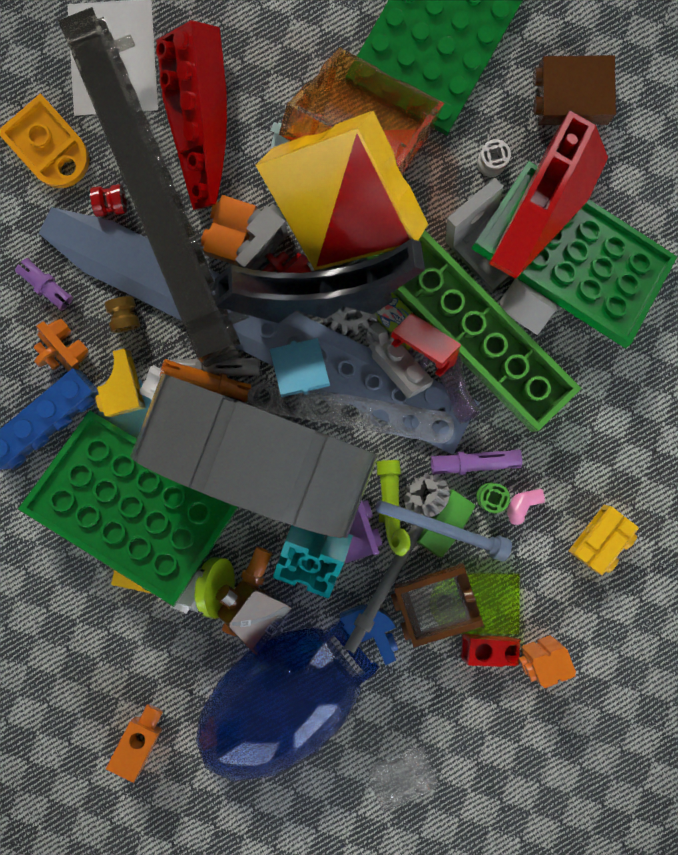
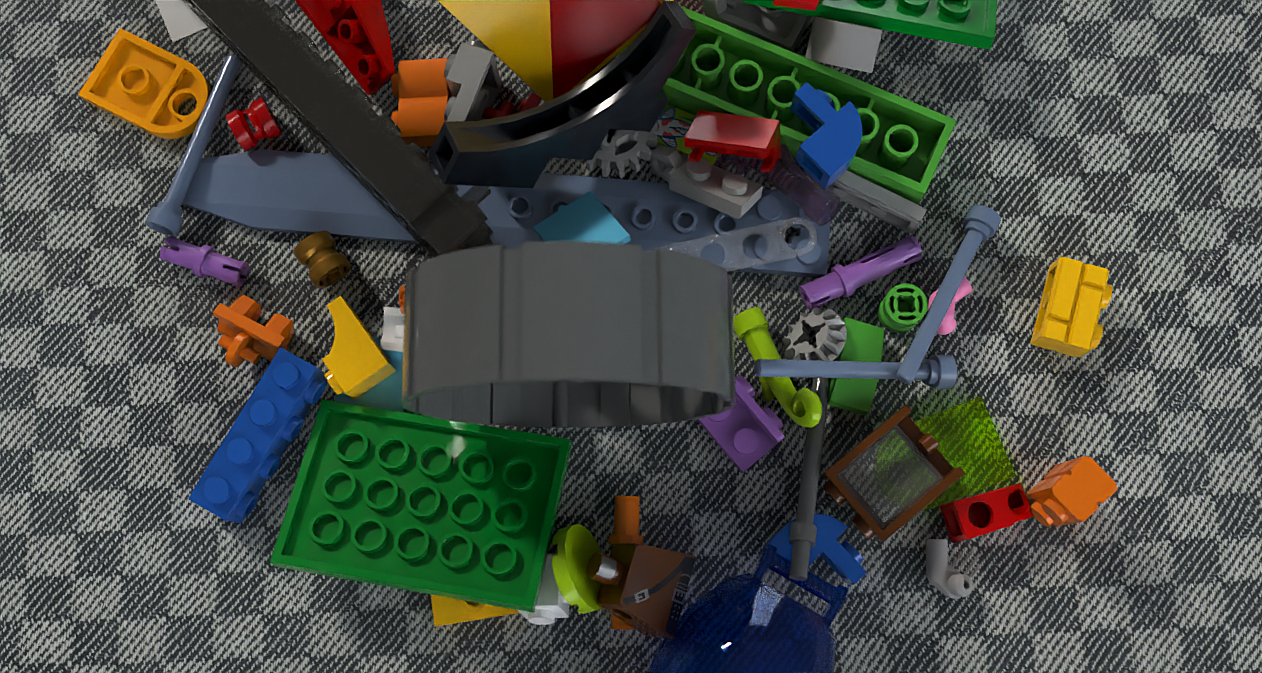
camera: 20 degrees left, 10 degrees down
(29, 243) = (167, 215): none -> sand blue piece
(312, 560) = (697, 473): teal brick -> none
(446, 677) = (942, 574): none -> light grey arm
(494, 372) = (835, 134): none -> blue brick
(500, 410) = (877, 201): none -> light grey tile
(568, 461) = (978, 225): none -> sand blue piece

